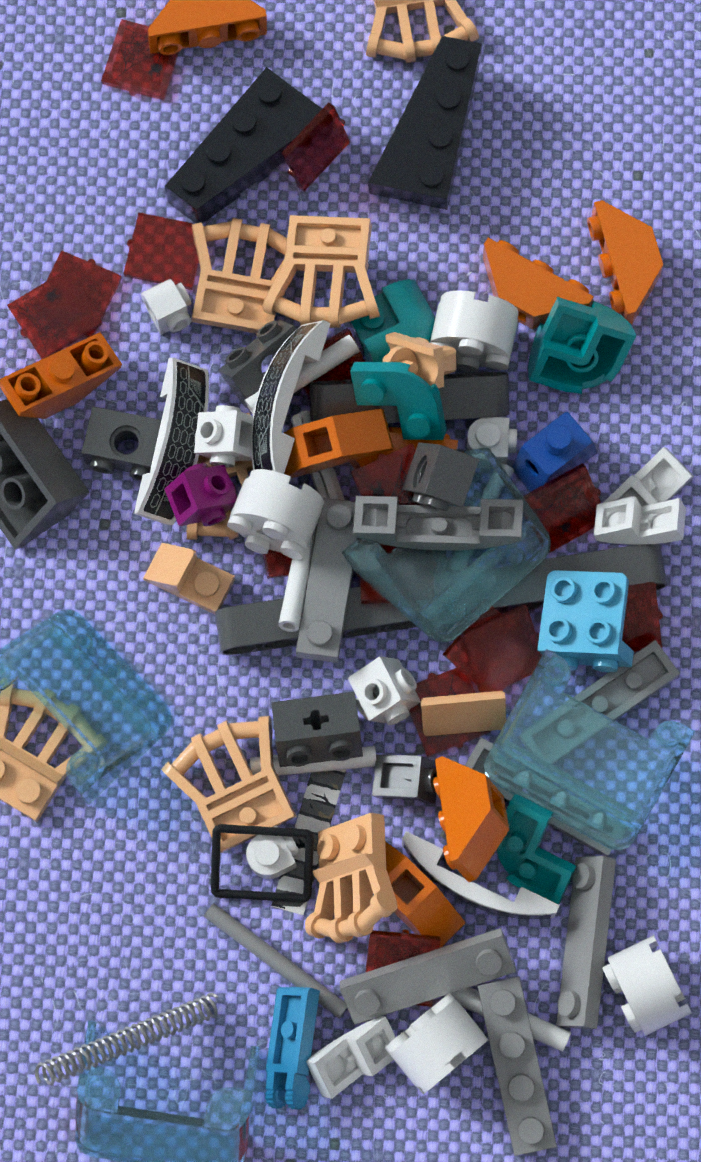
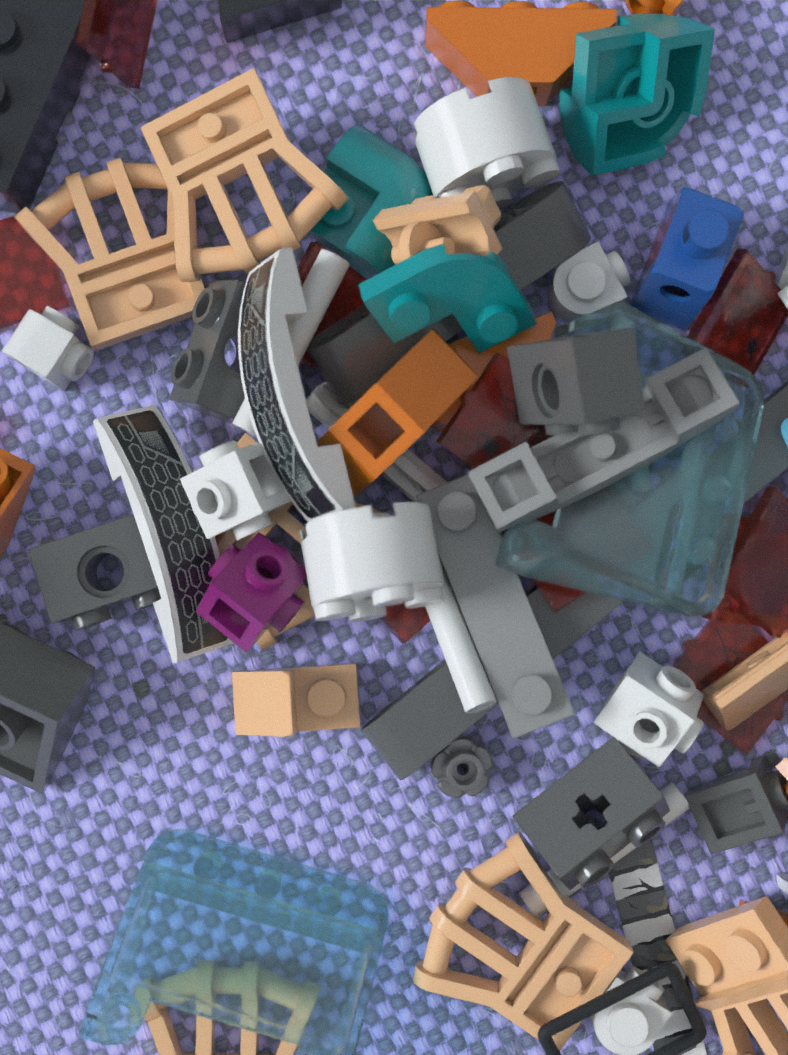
camera: 35 degrees left, 10 degrees up
(259, 678) = (474, 779): none -> flat silver plate

